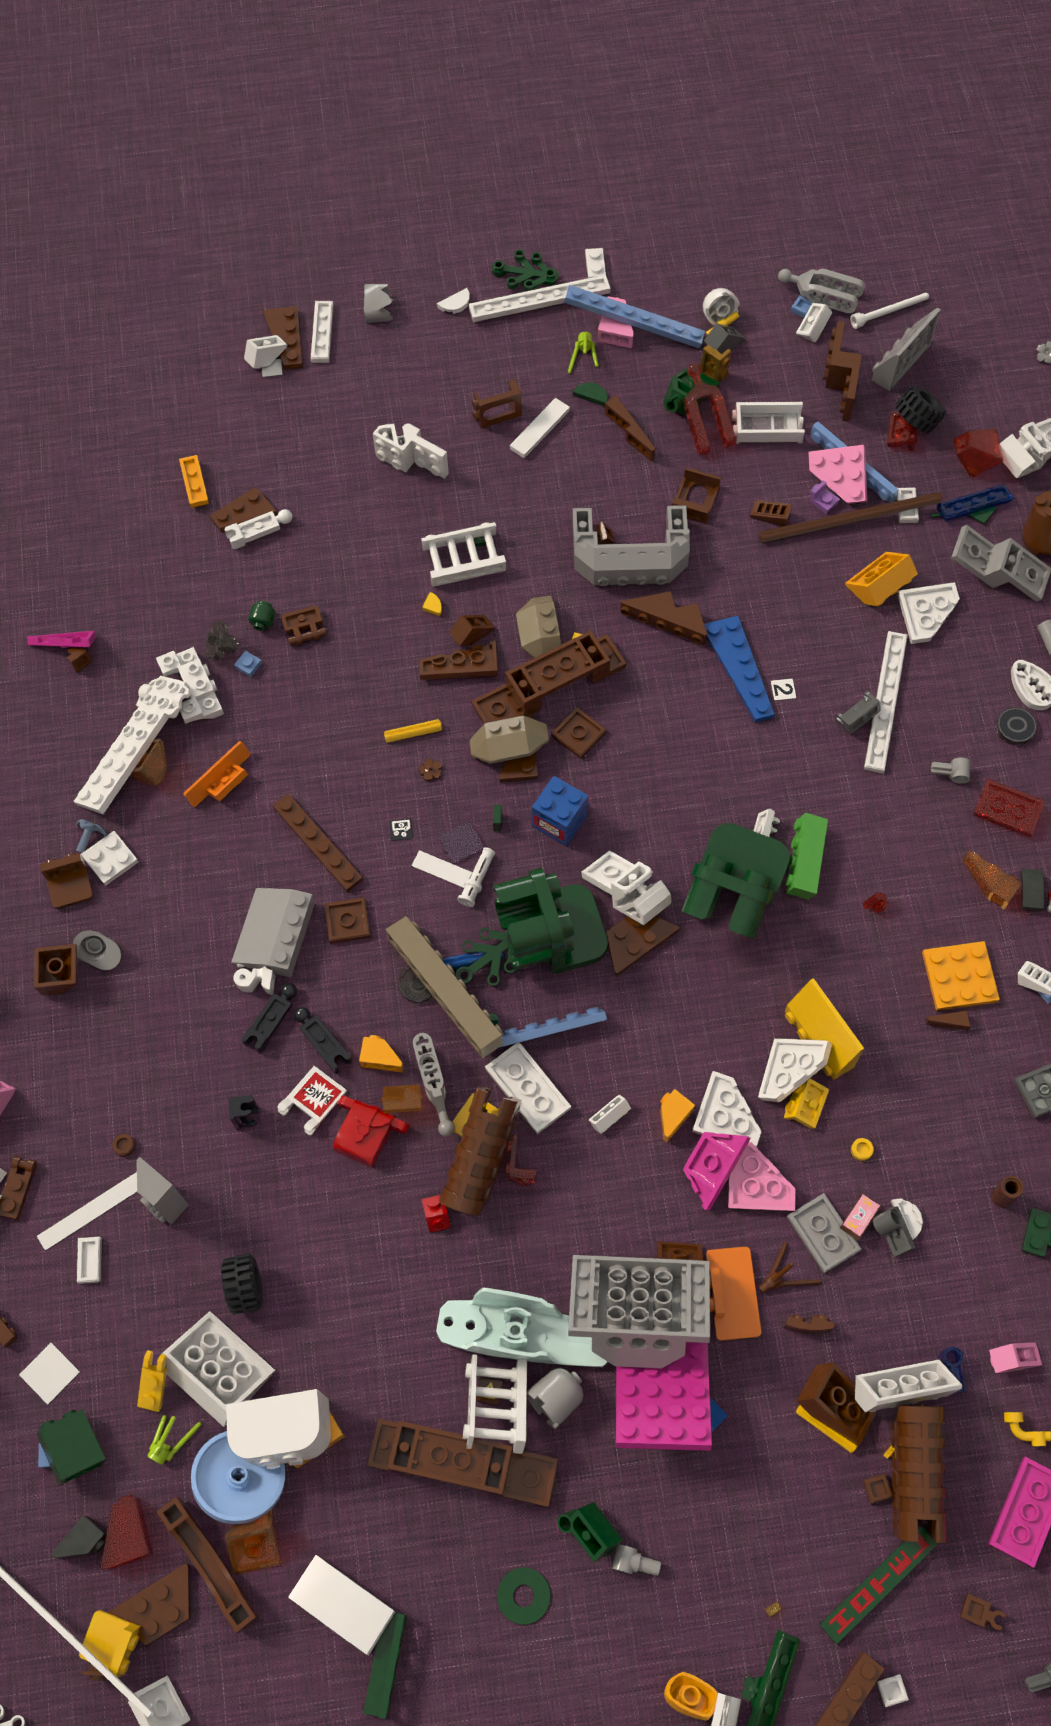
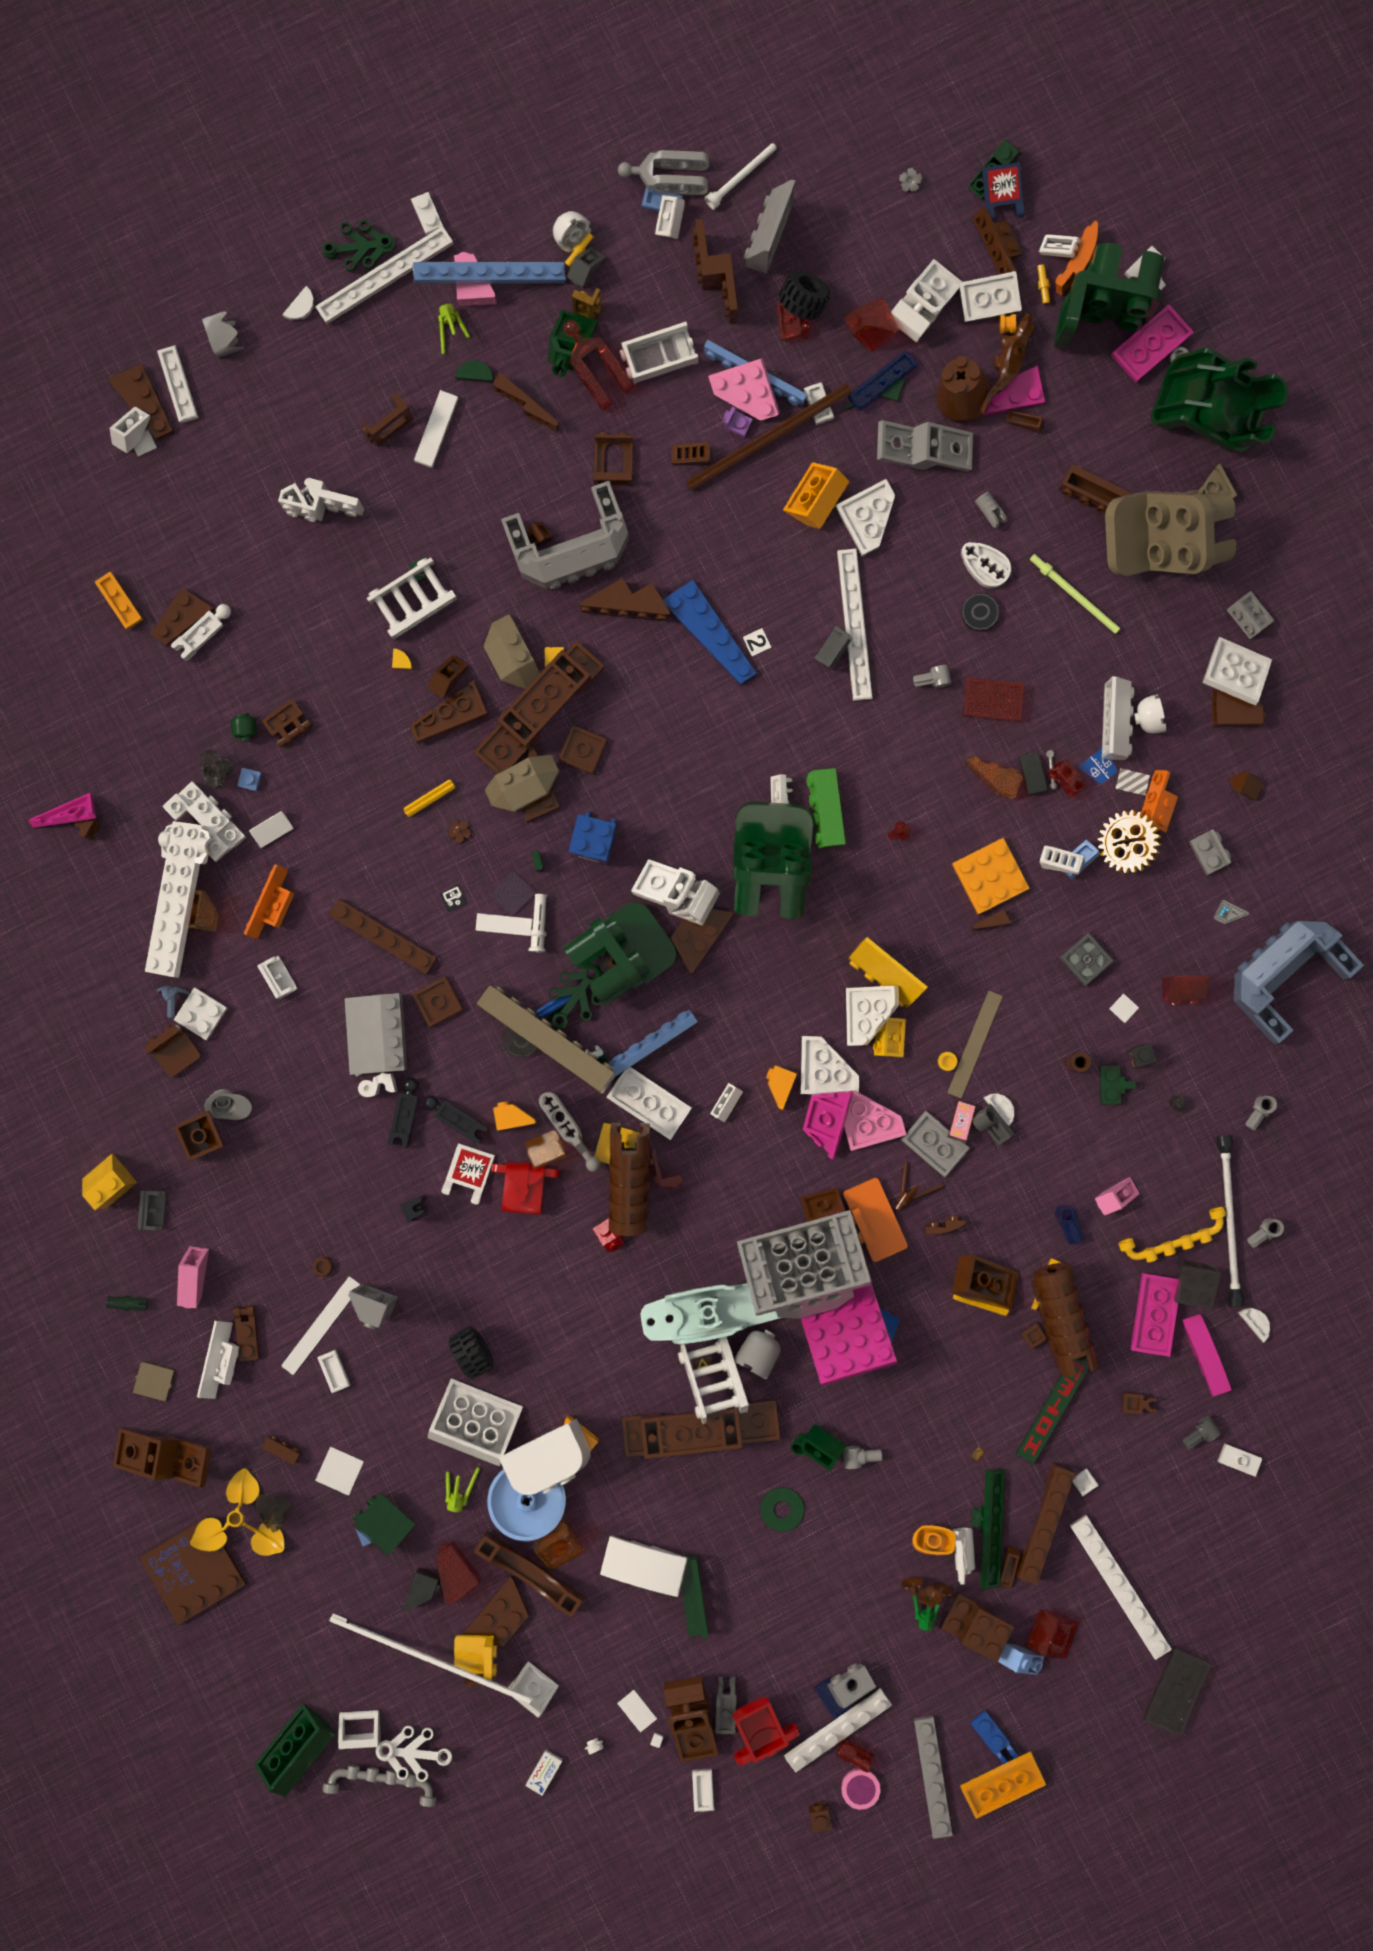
camera: 20 degrees left, 20 degrees up
(152, 1382) = (429, 1454): yellow hinge -> none
(198, 846) = (277, 977): none -> white hinge
(250, 712) = (271, 829): none -> white slope
(896, 1142) = (974, 1044): none -> dark tan sticker
(904, 1385) = (1035, 1253): white slope -> none

